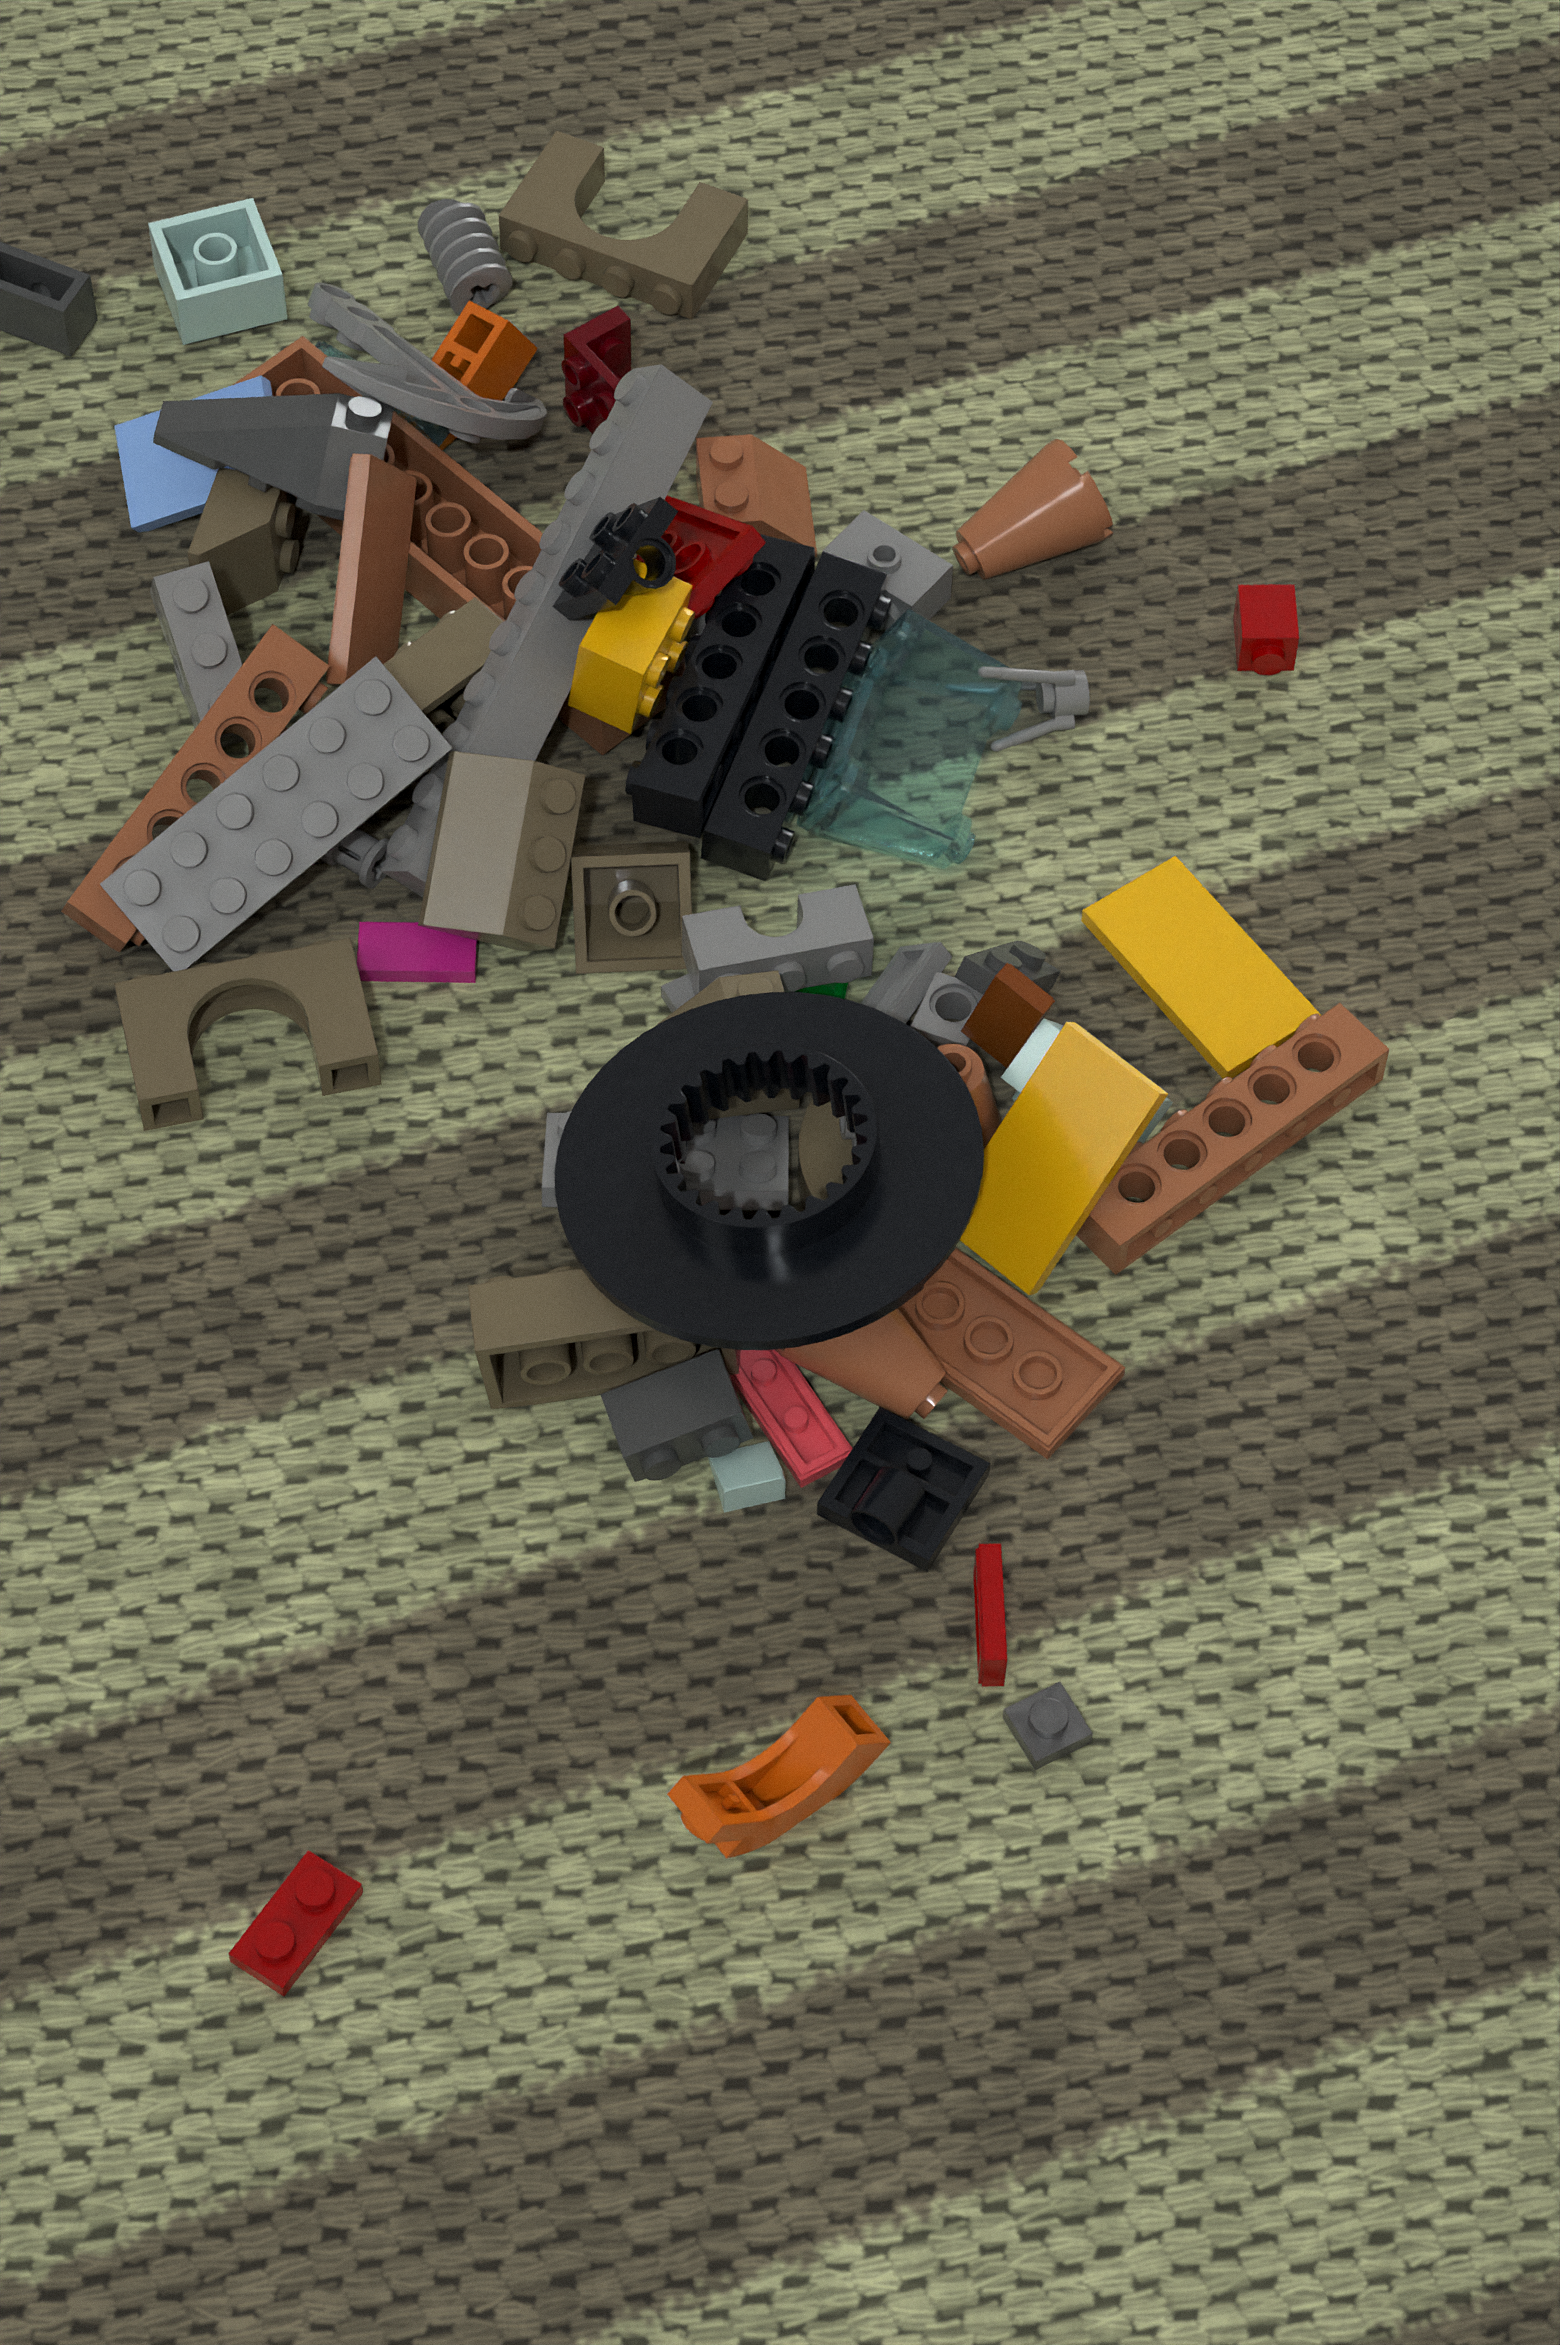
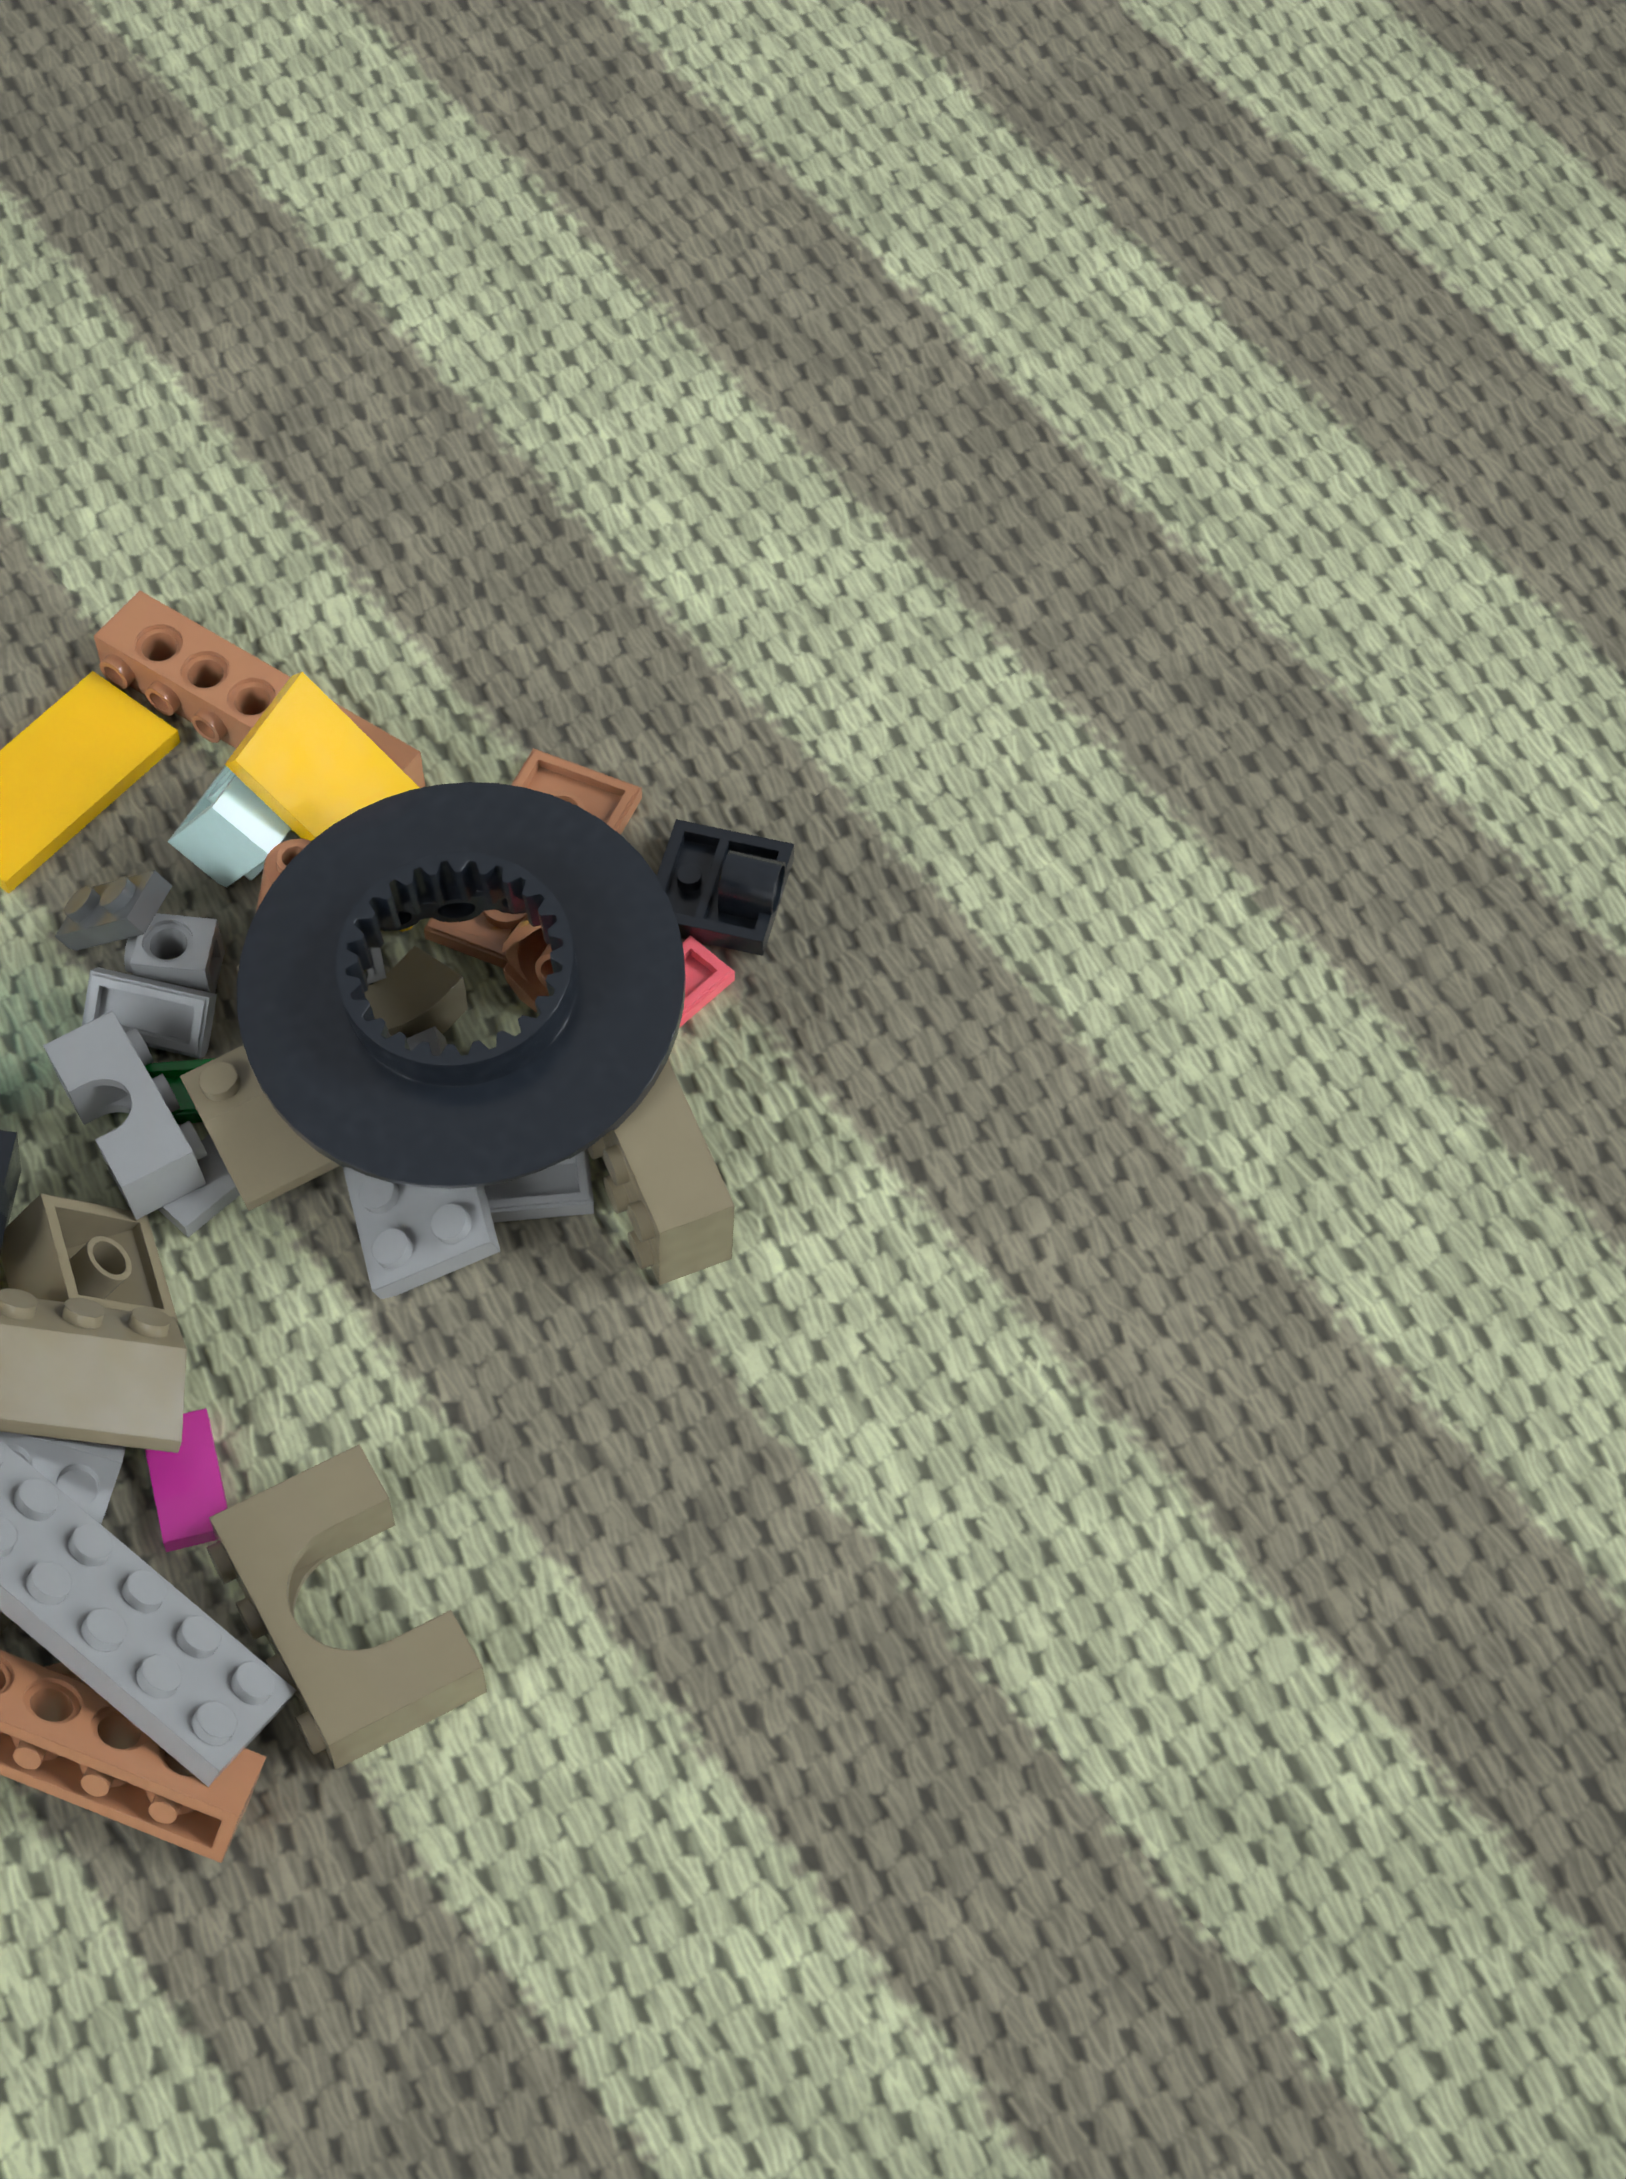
camera: 105 degrees left, 0 degrees up
(296, 1923) = (1336, 1261): red plate -> none
(677, 1417) = (720, 1074): dark grey brick -> none
(748, 1477) = (741, 1016): light aqua slope -> none
(785, 1782) = (1052, 904): orange arch -> none
(989, 1615) = (831, 789): red tile -> none
(1007, 1014) = (201, 854): dark orange tile -> none
(1047, 1725) = (917, 738): flat silver plate -> none

